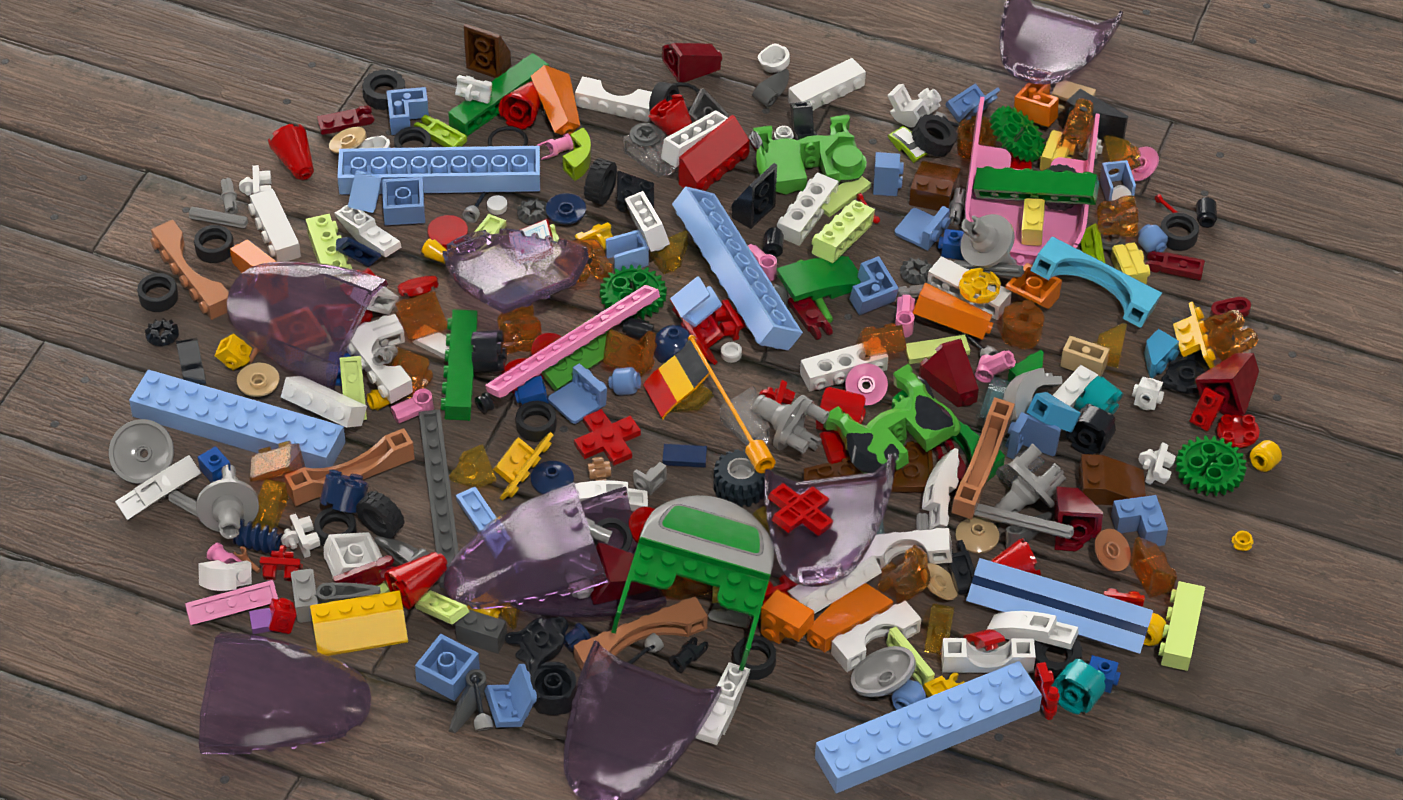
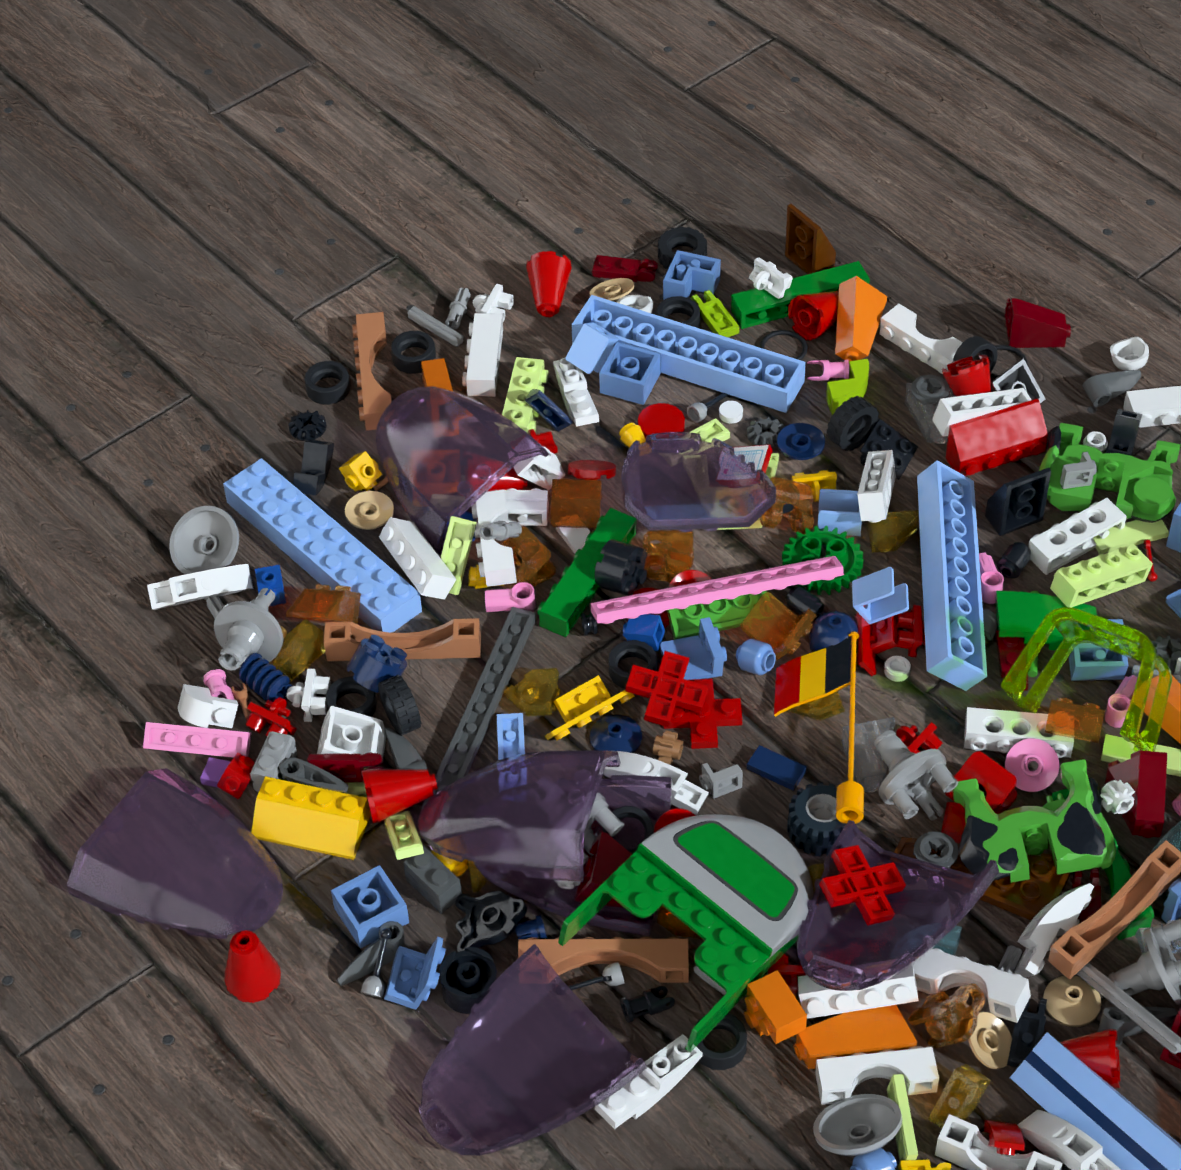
camera: 30 degrees right, 0 degrees up
(383, 746) = (250, 968): none -> red cone
(576, 427) = (666, 688): none -> red plate
(790, 161) = (1078, 474): none -> light grey bracket
(832, 461) = (936, 841): none -> dark grey gear
(882, 269) = (1105, 635): none -> clear neon green windscreen
(940, 382) = (1117, 797): none -> white gear

